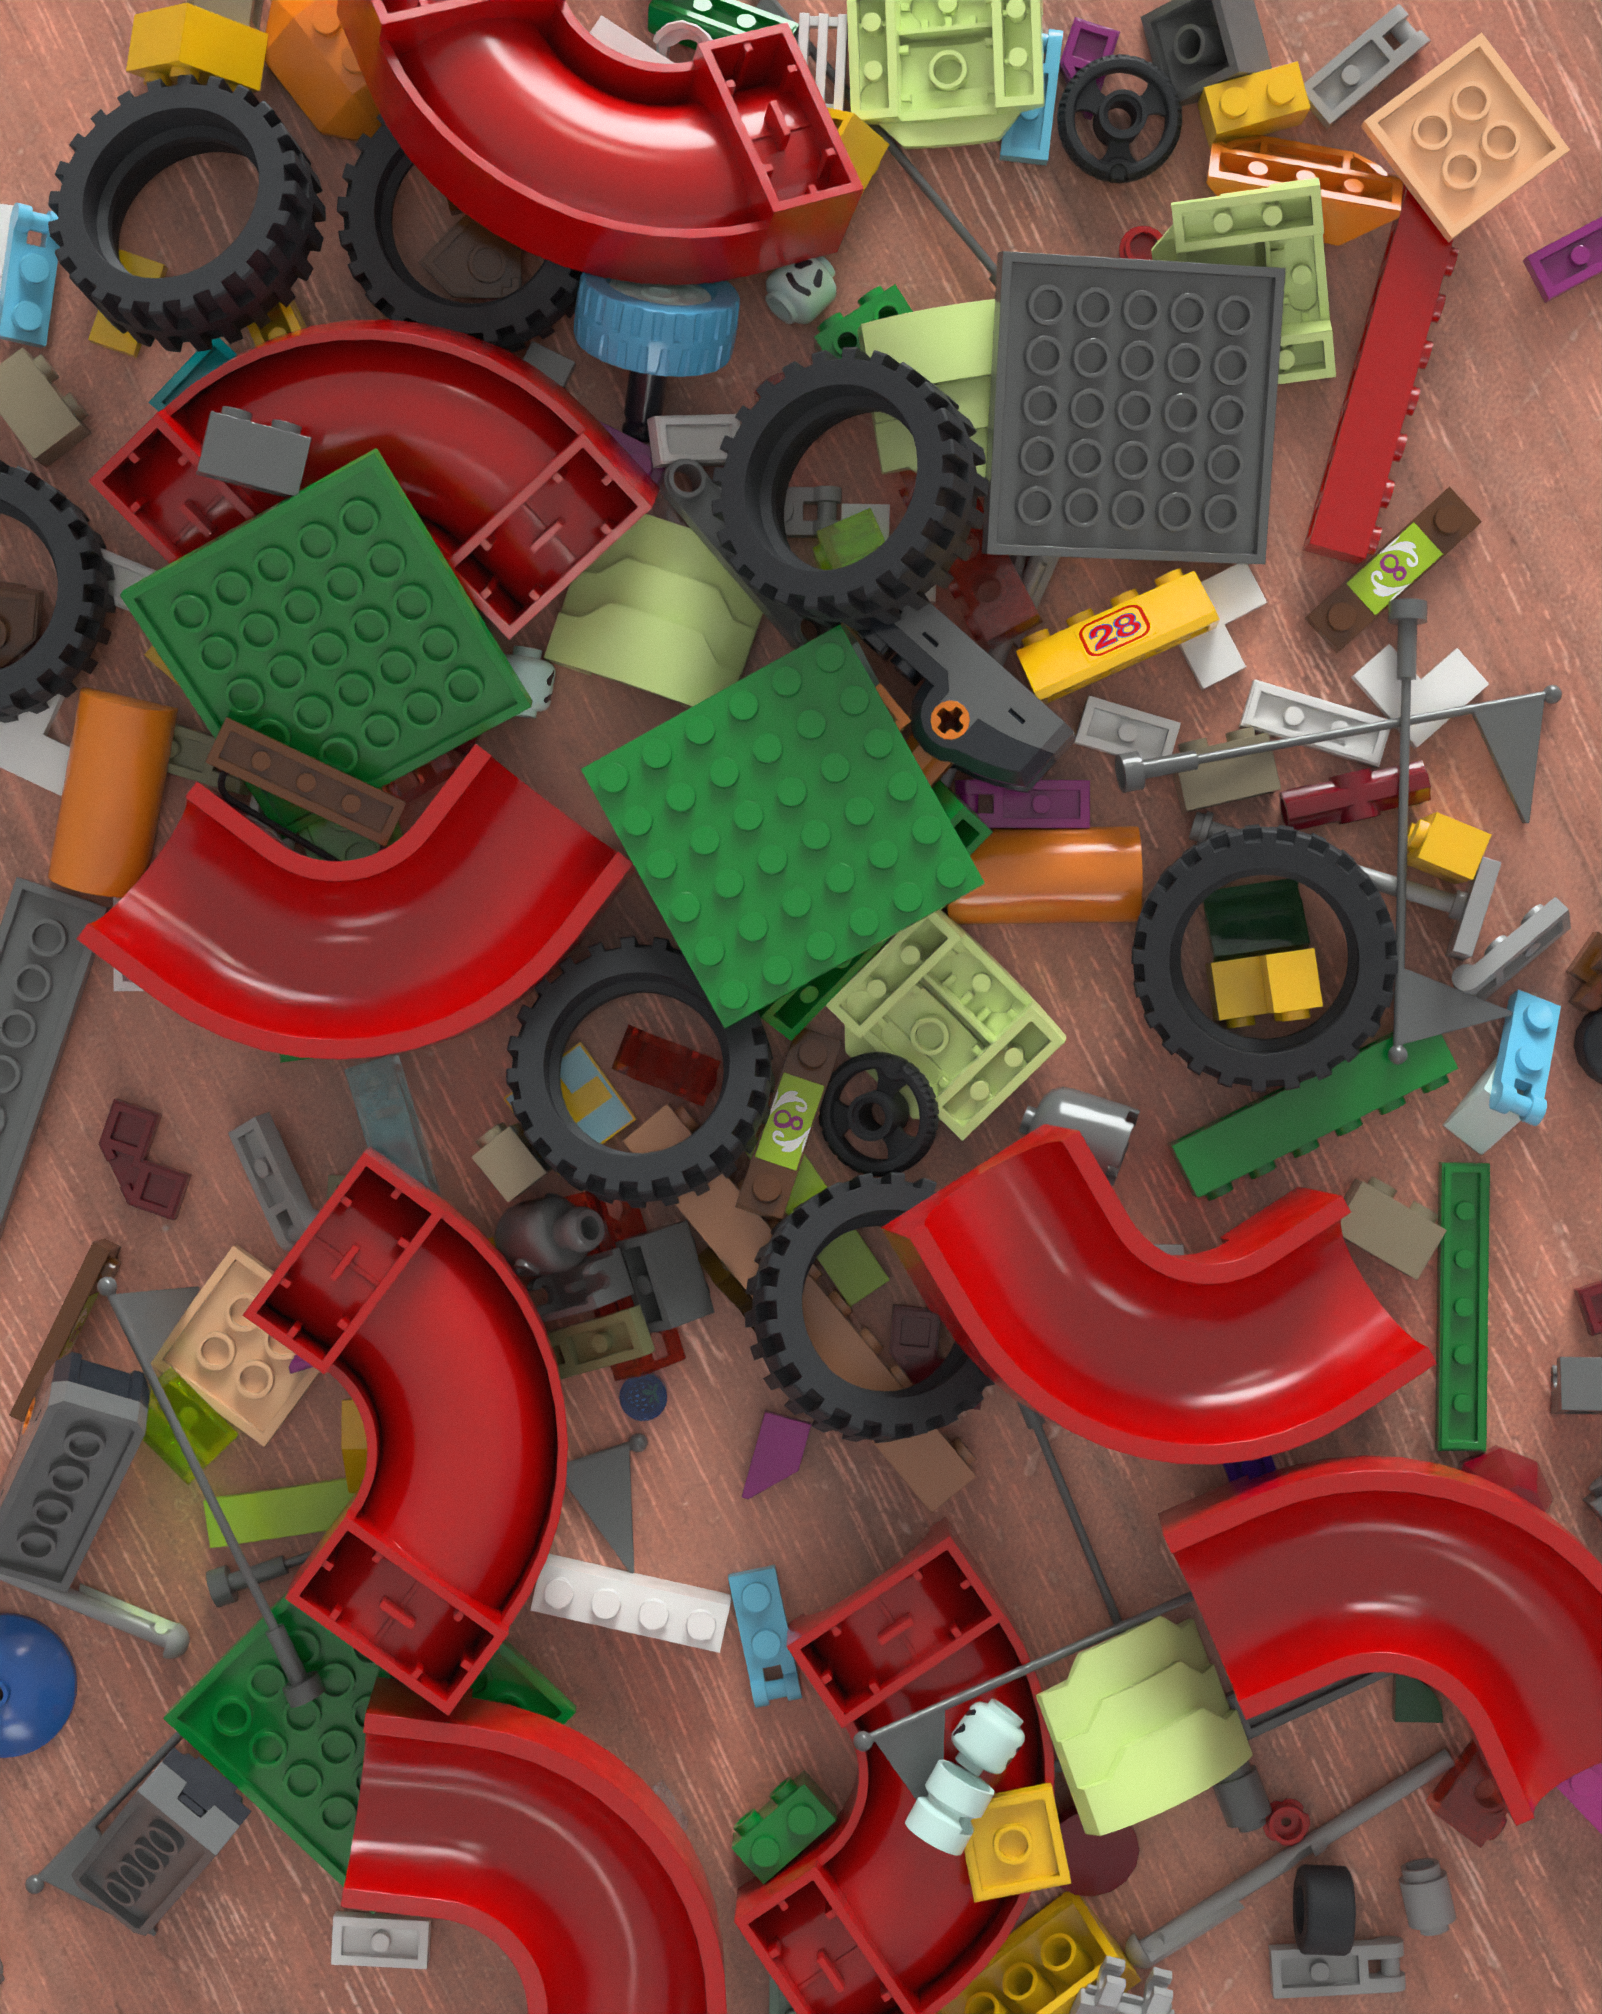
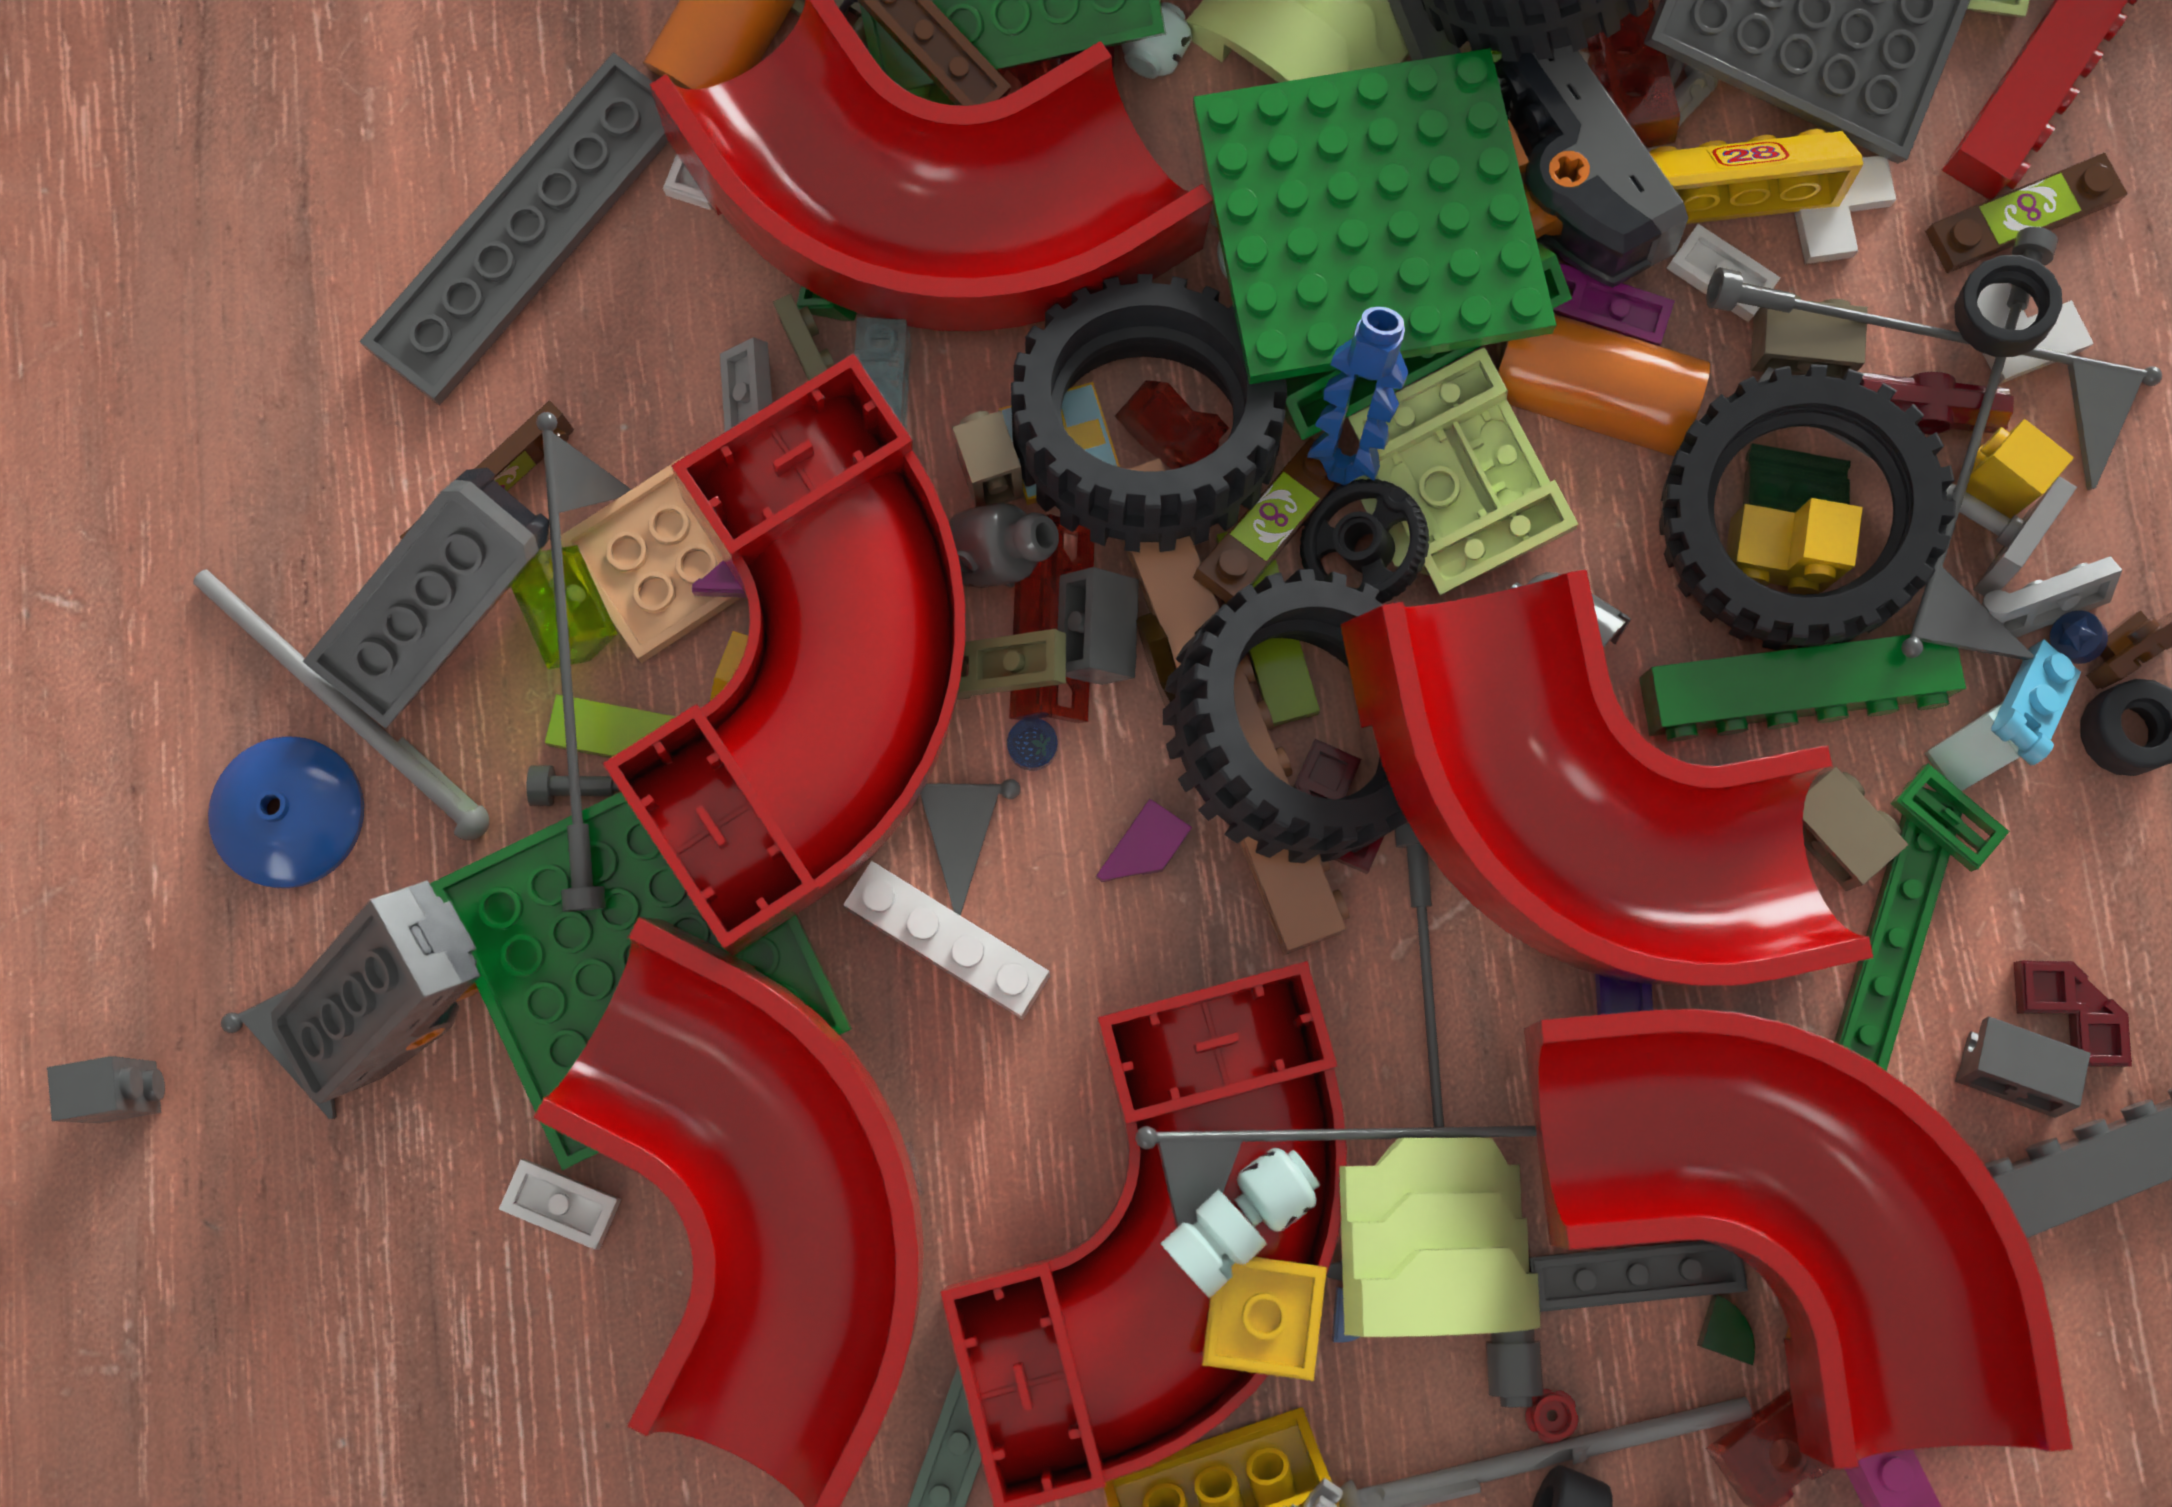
camera: 25 degrees right, 10 degrees down
(126, 1146) = (617, 336): dark red tile -> none
(320, 1116) = (800, 329): none -> olive plate
(589, 1286) = (1017, 606): dark grey hinge -> none
(764, 1633) = (1070, 1025): medium azure plate -> none
(783, 1826) = (1022, 1229): green brick -> none
(831, 982) = (1372, 356): none -> blue sword
(1094, 1861) = (1348, 1376): dark red tile -> none
(1294, 714) = (1924, 351): white tile -> none
(1395, 657) = (2020, 272): none -> black tyre
(1440, 1170) = (1939, 833): none -> green tile
(1549, 975) = (2079, 636): none -> dark blue tile

